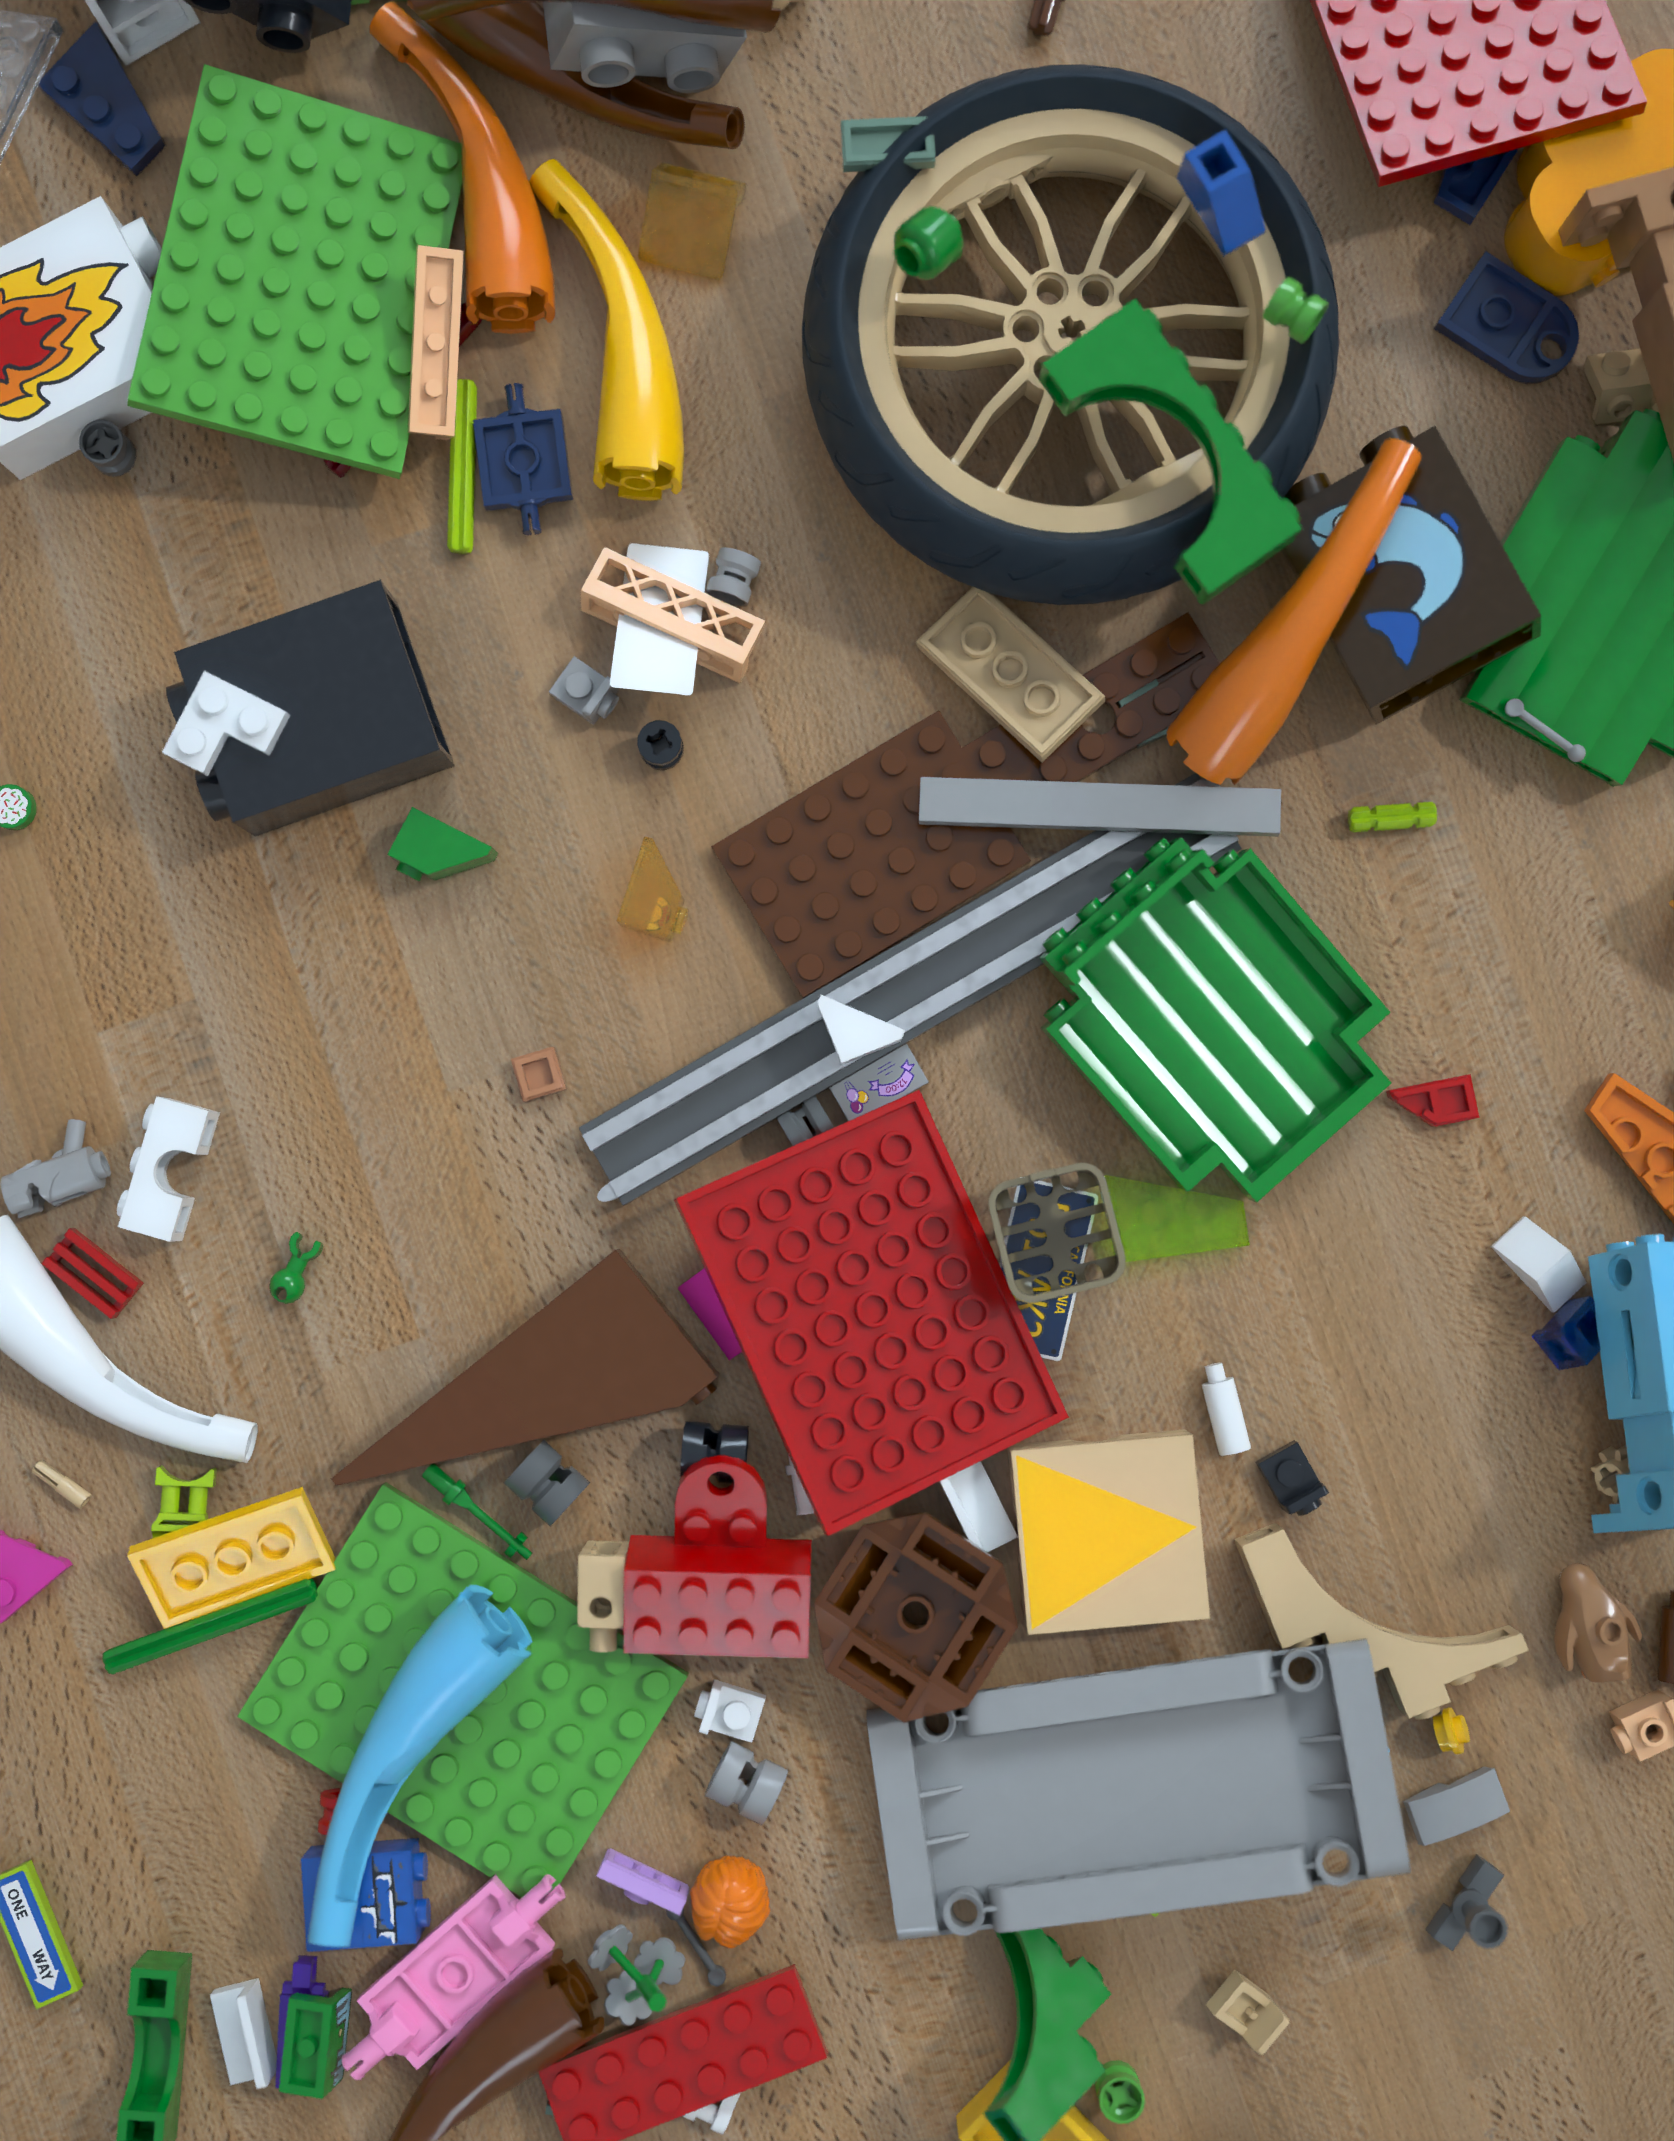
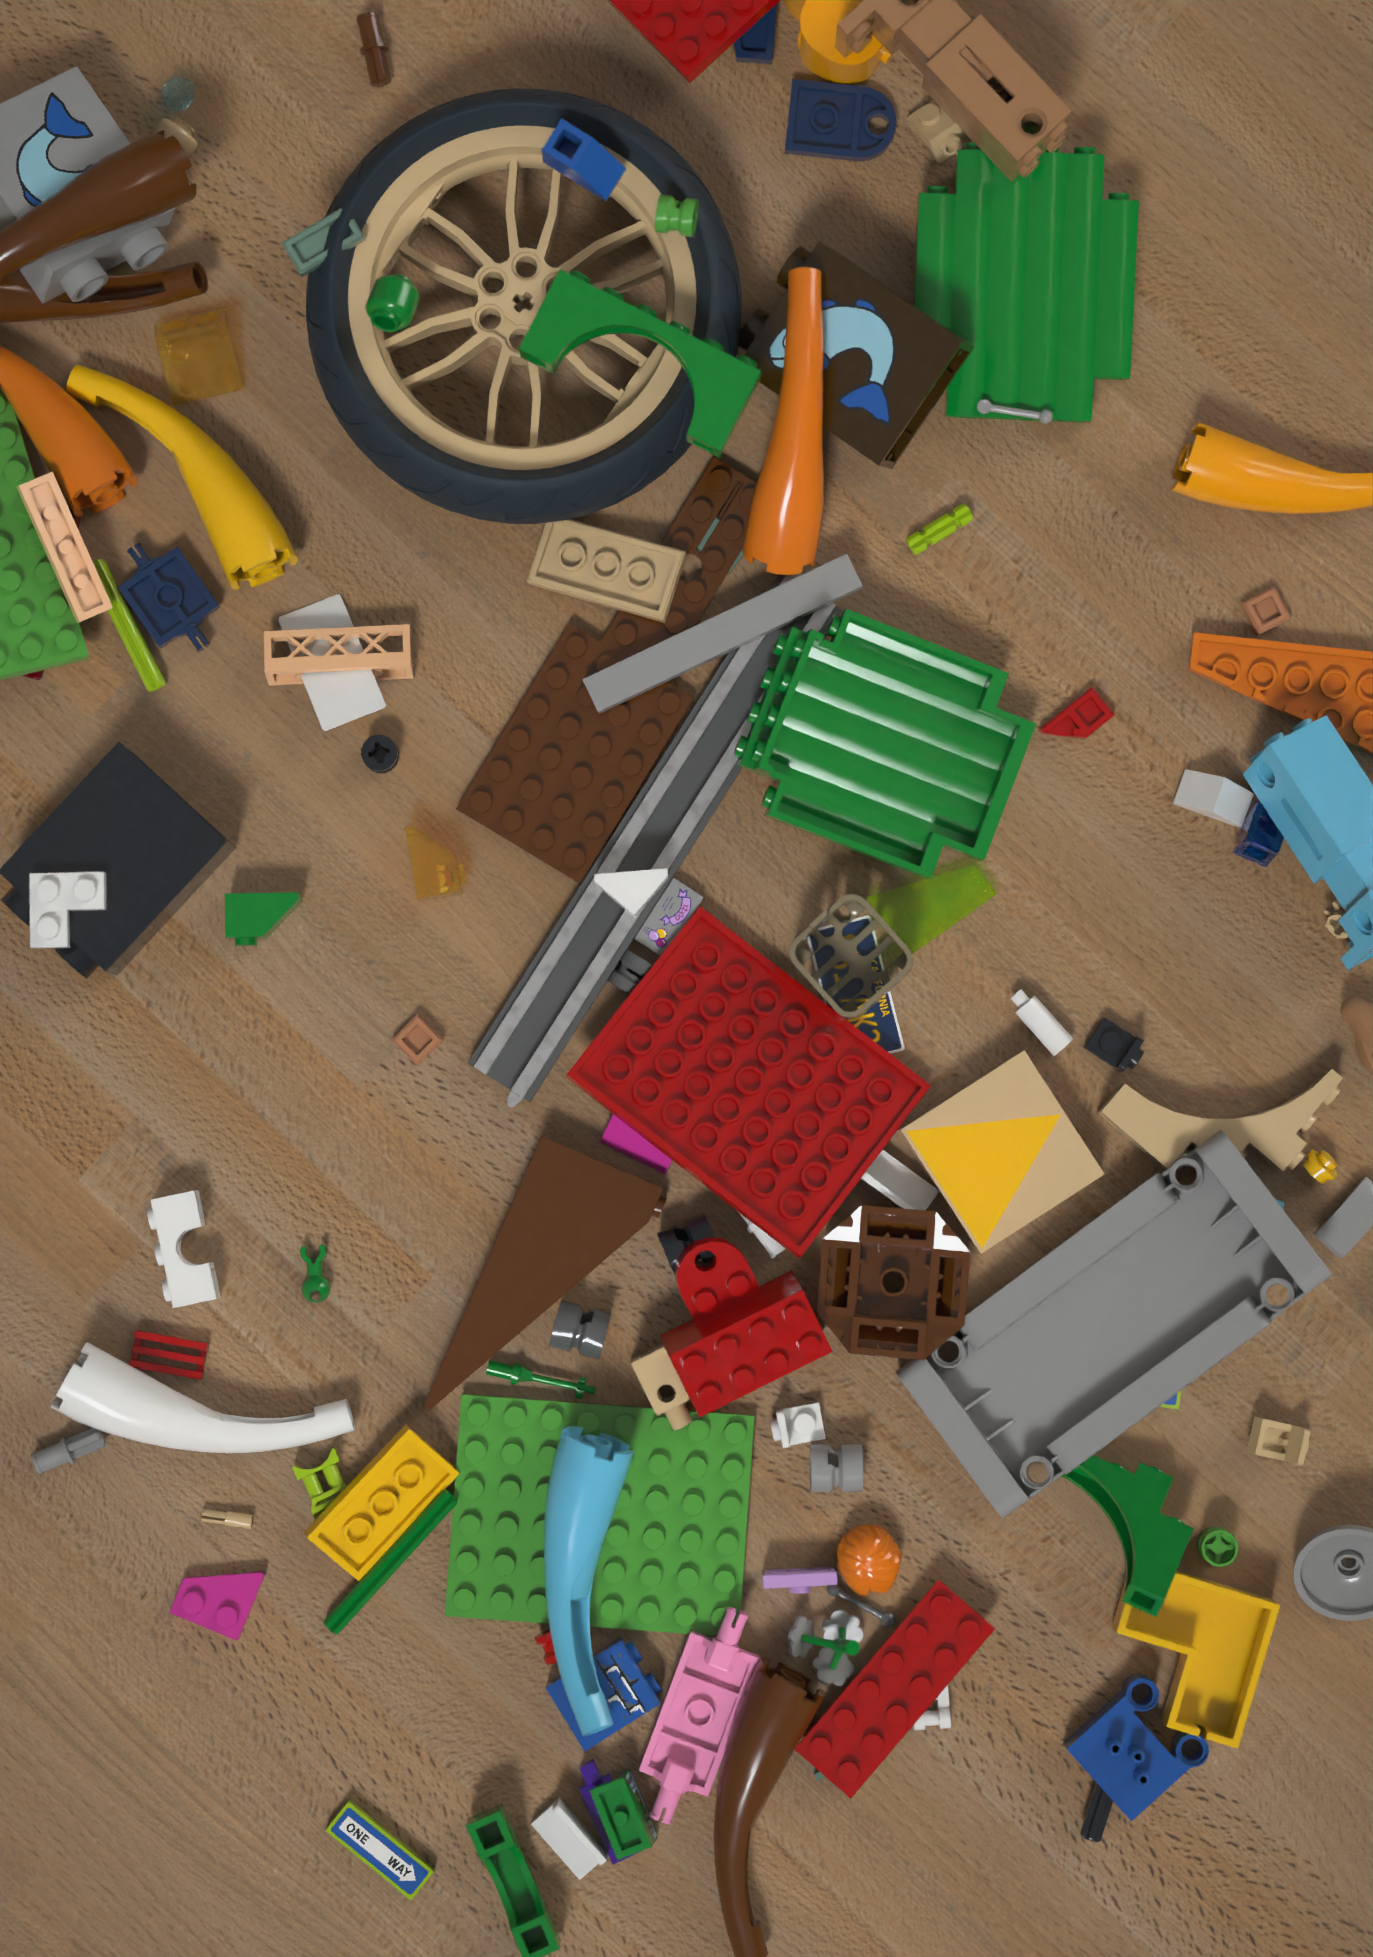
camera: 30 degrees left, 0 degrees up
(64, 1177) = (110, 1297): light grey piece -> none
(585, 691) = (304, 743): light grey bracket -> none
(733, 576) = (369, 603): light grey wheel -> none

